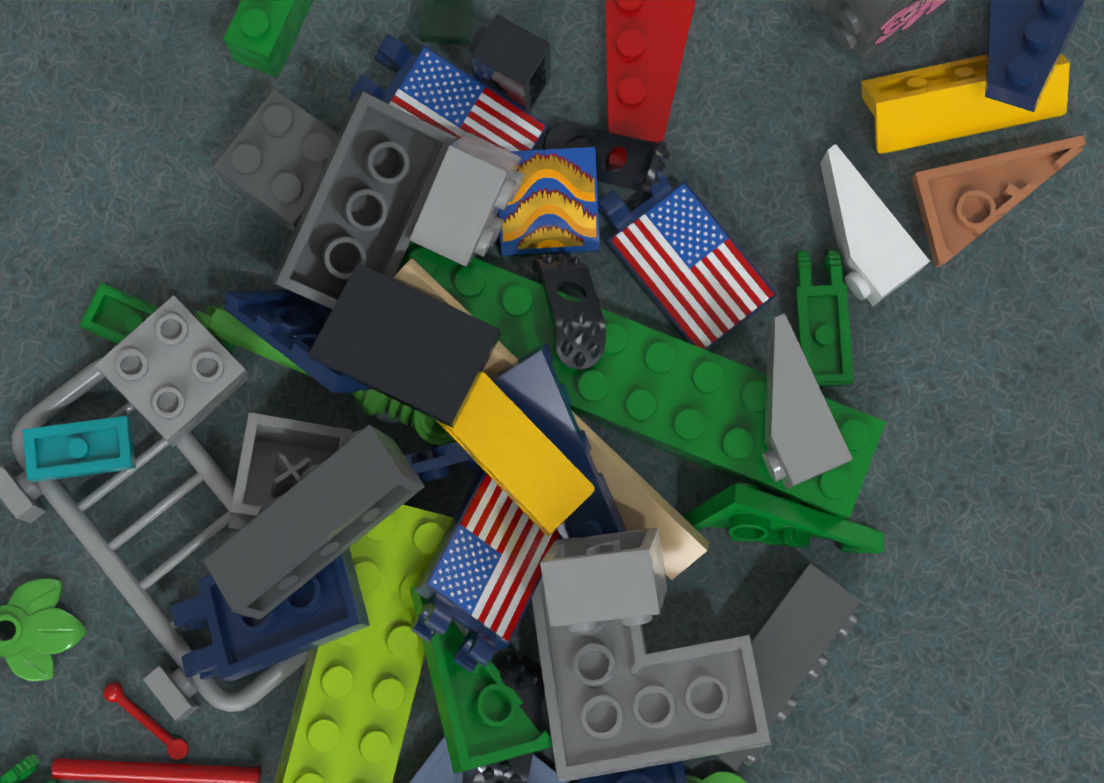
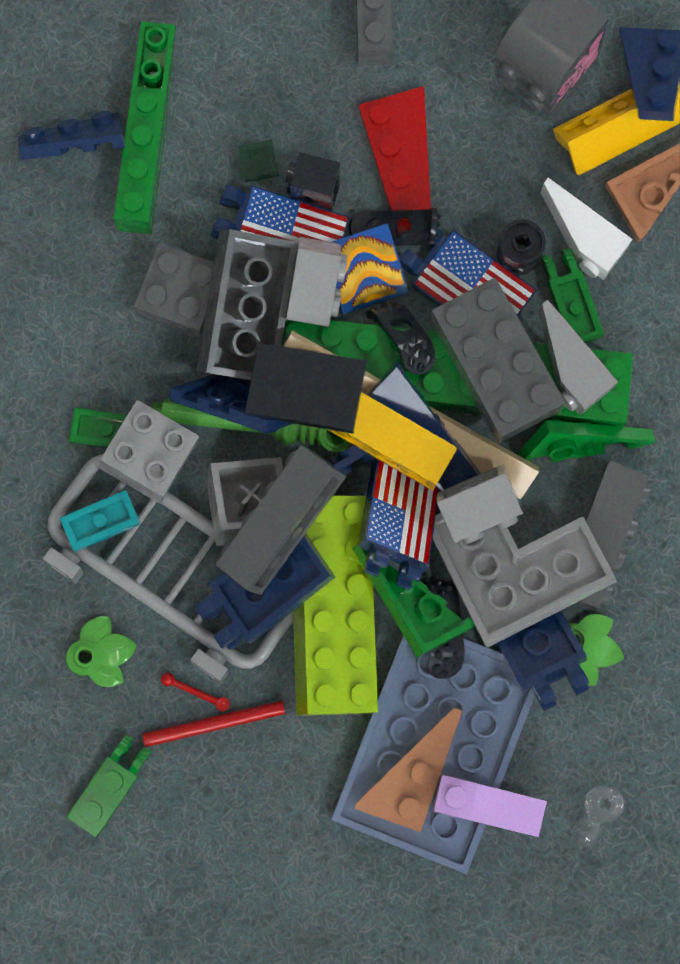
camera: 20 degrees left, 0 degrees up
(689, 379) = (496, 360): none -> dark grey brick
(771, 229) = (521, 246): none -> black wheel

